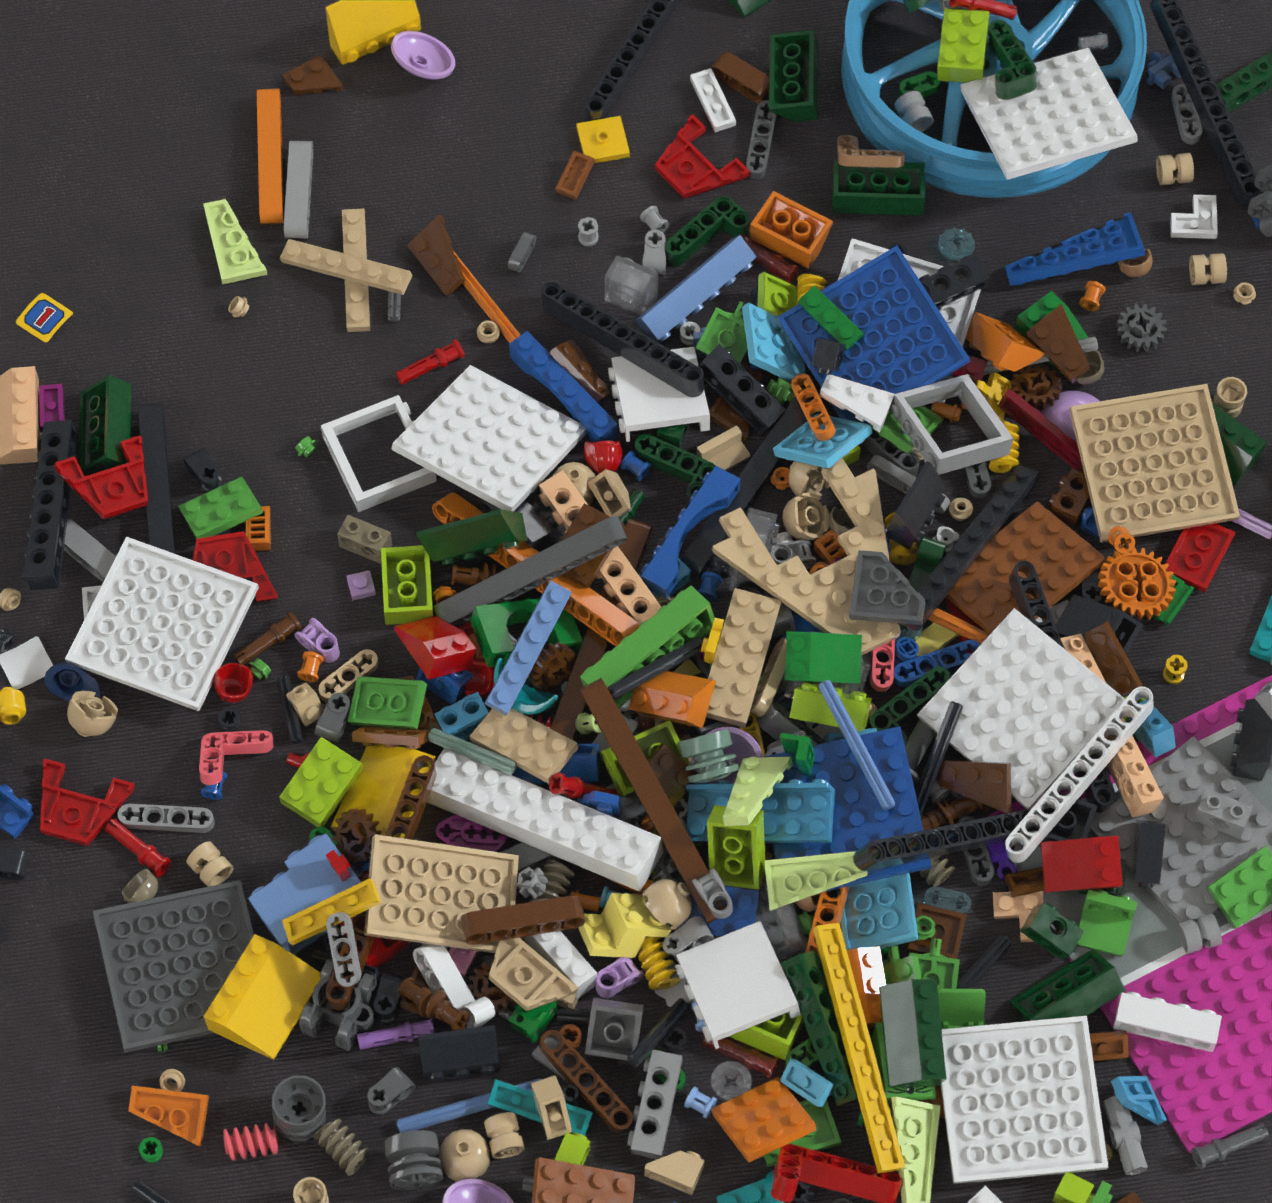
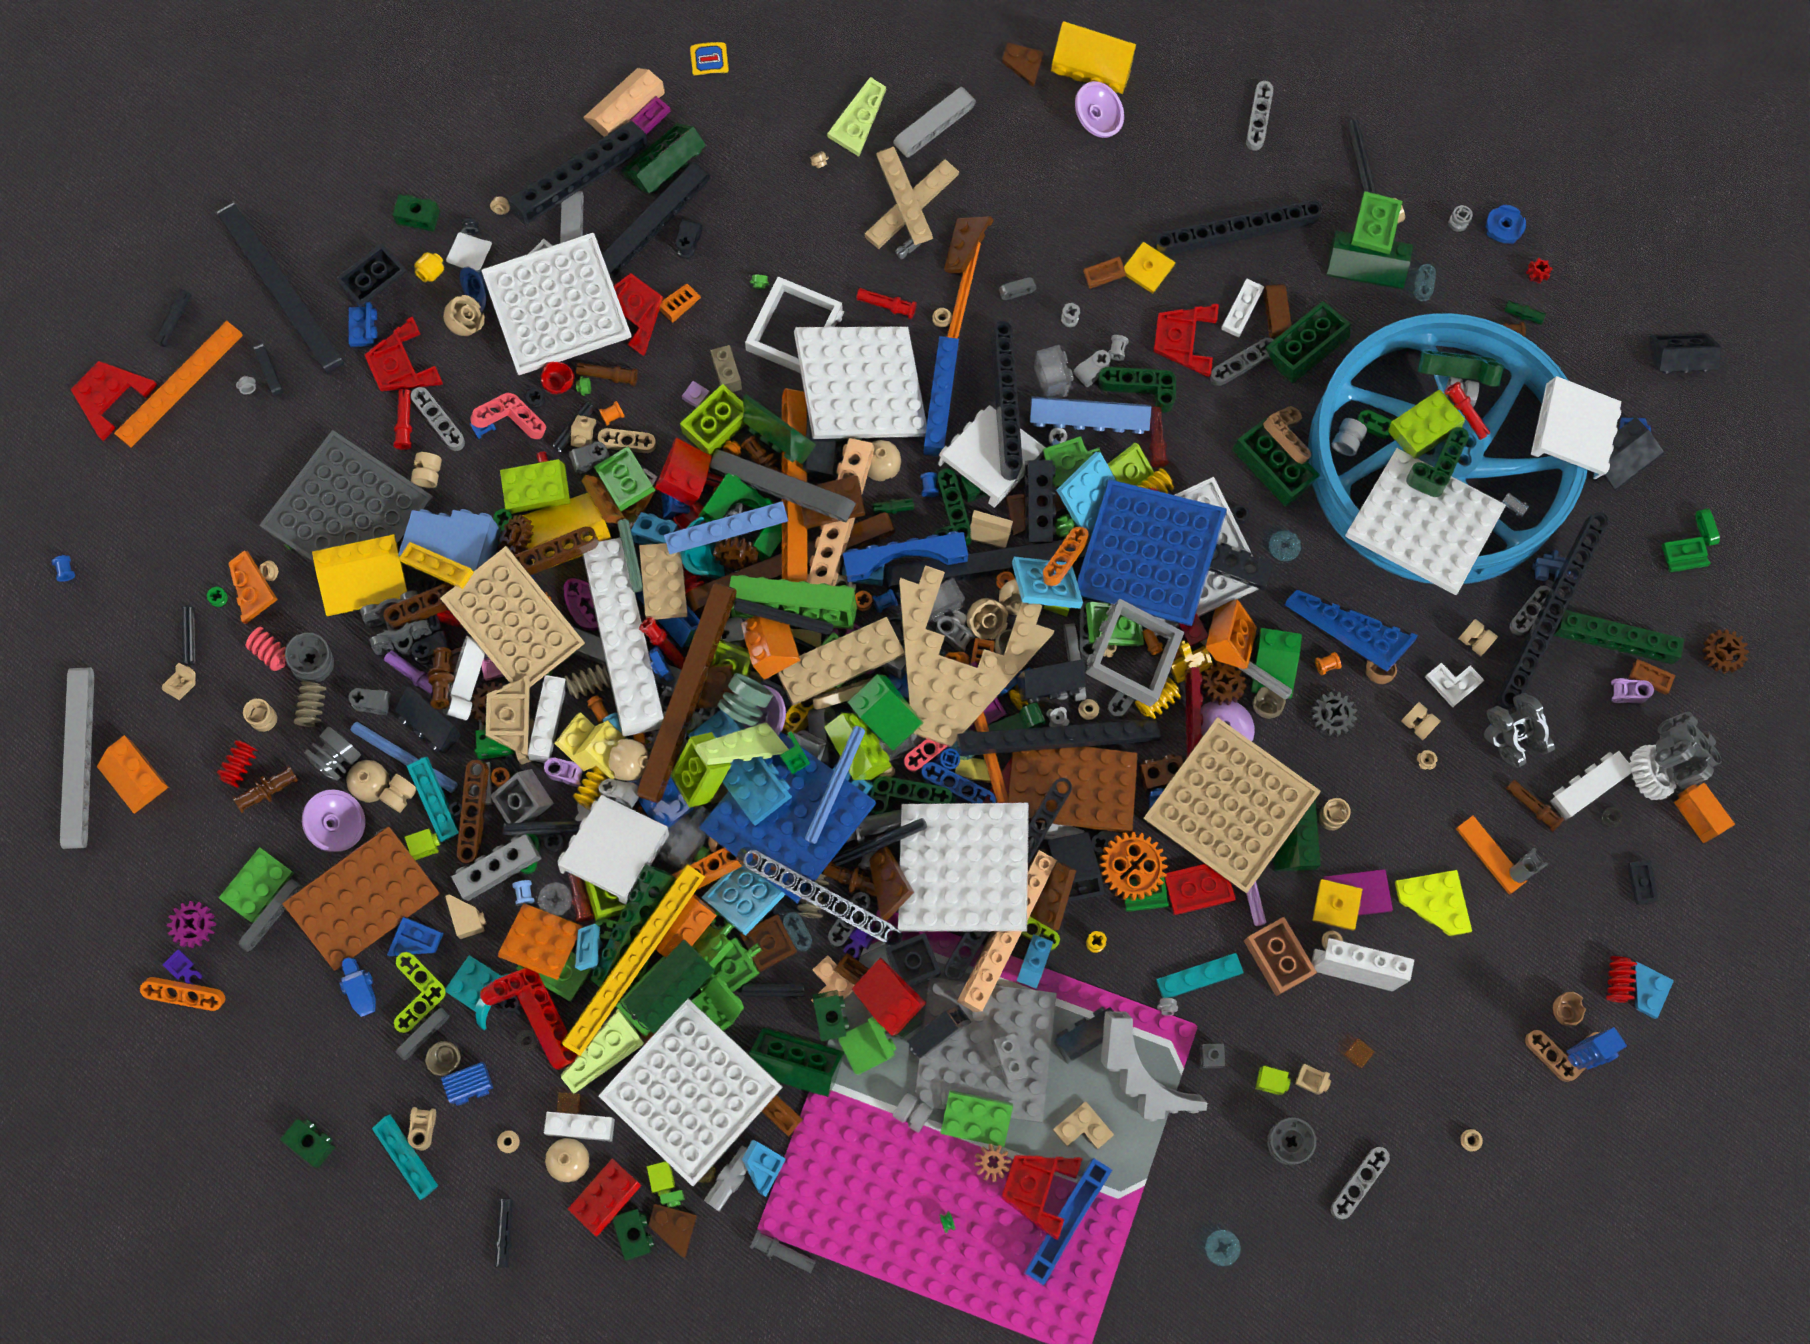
camera: 45 degrees right, 10 degrees up
(112, 489) = (620, 198): red wing -> none
(141, 887) = (376, 444): dark tan hair -> none
(220, 509) = (670, 270): bright green plate -> none
(270, 156) = (943, 84): orange beam -> none
(316, 637) = (633, 400): lavender piece -> none
(339, 864) = (472, 543): red plate -> none
(350, 940) = (408, 596): light grey beam -> none
(522, 920) = (539, 682): reddish brown beam -> none
(531, 882) = (573, 666): light grey gear -> none
(551, 1107) = (434, 805): tan slope -> none
(578, 366) = (965, 392): reddish brown wing -> none
(603, 455) = (914, 460): red hair -> none
(610, 493) = (892, 486): tan slope -> none
(710, 645) = (829, 634): yellow plate -> none
(712, 890) = (652, 781): light grey piece -> none
(790, 229) = (1190, 434): orange slope -> none
(808, 875) = (718, 828): yellowish green wing -> none
(828, 355) = (1108, 533): black brick -> none
(830, 317) = (1137, 512): green plate -> none
(862, 400) = (1097, 583): white wing -> none
(883, 592) = (964, 711): dark grey plate -> none
(929, 924) = (760, 937): bright green plate -> none
(1059, 343) = (1264, 669): reddish brown wing -> none
(1075, 784) = (937, 937): white beam -> none
(1114, 539) = (1147, 830): orange bush -> none
(1167, 1021) = (831, 1142): white brick -> none

